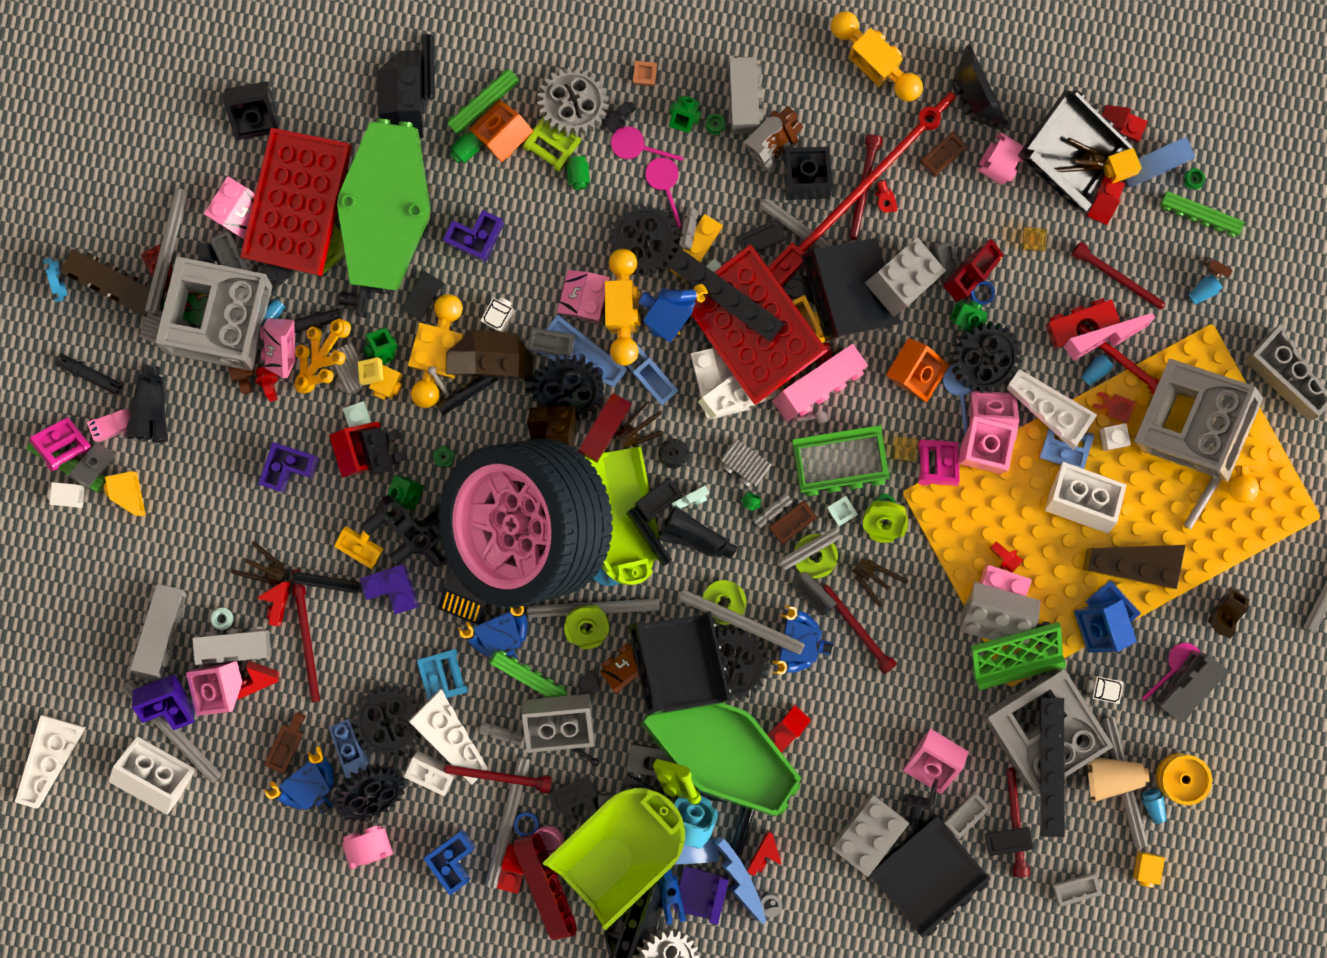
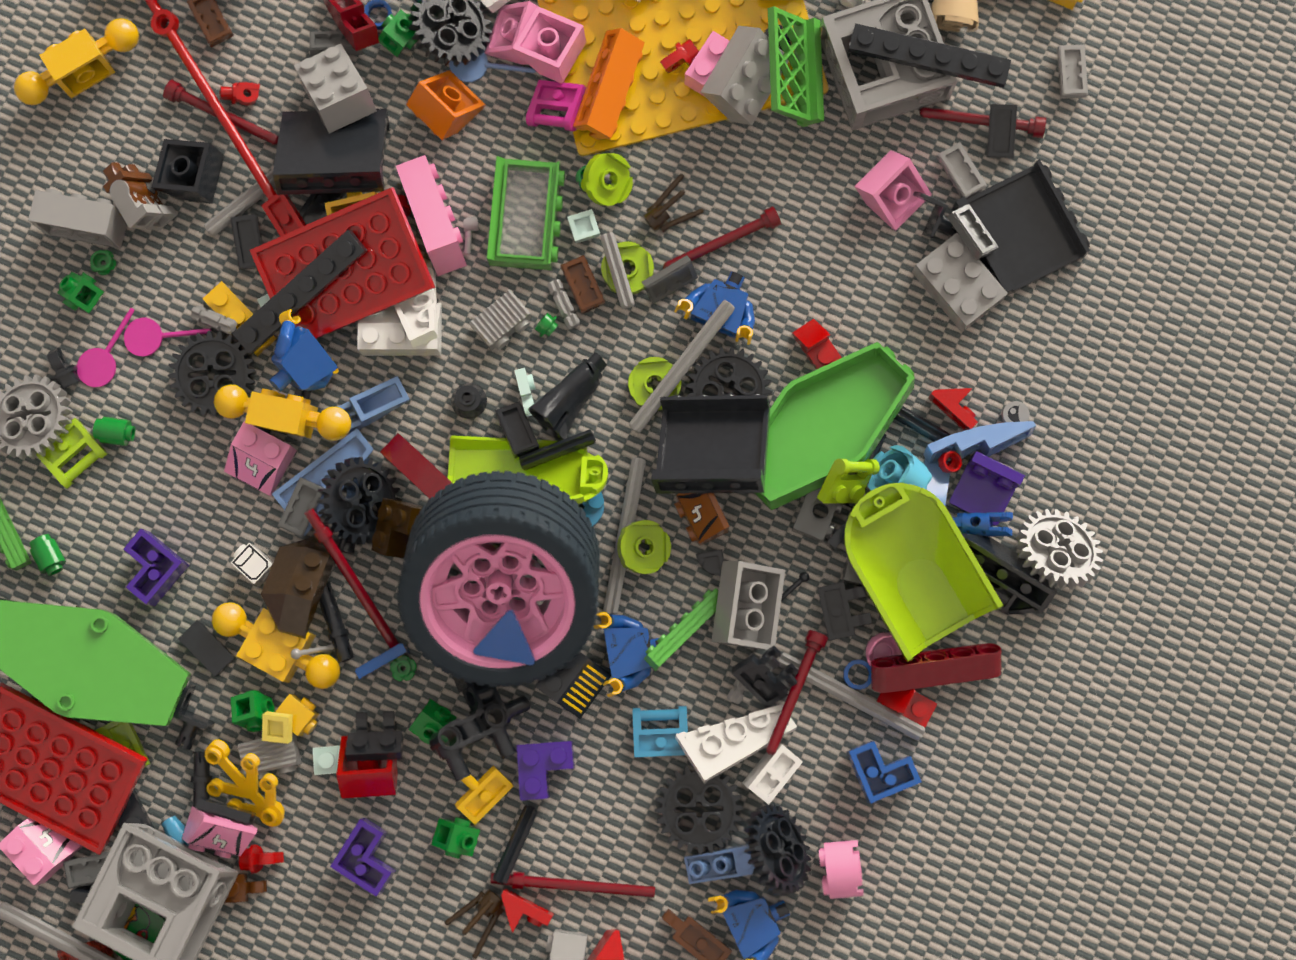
camera: 75 degrees left, 5 degrees down
(296, 347) = (225, 811): none -> black tile
(319, 534) = (455, 837): none -> green brick
(450, 444) = (381, 661): none -> blue tile
(474, 539) = (506, 642): none -> blue piece
(500, 747) = (760, 681): none -> black plate
(501, 130) = (38, 507): orange slope -> none
(531, 368) = (323, 534): none -> dark red bar
(629, 434) = (434, 445): dark brown plant -> none
(645, 73) = (21, 327): nougat plate -> none
(713, 862) = (953, 465): none -> red hinge
(905, 449) = (531, 139): clear yellow plate -> none
(912, 836) = (972, 232): none -> dark grey plate
(965, 503) = (609, 84): none -> orange brick

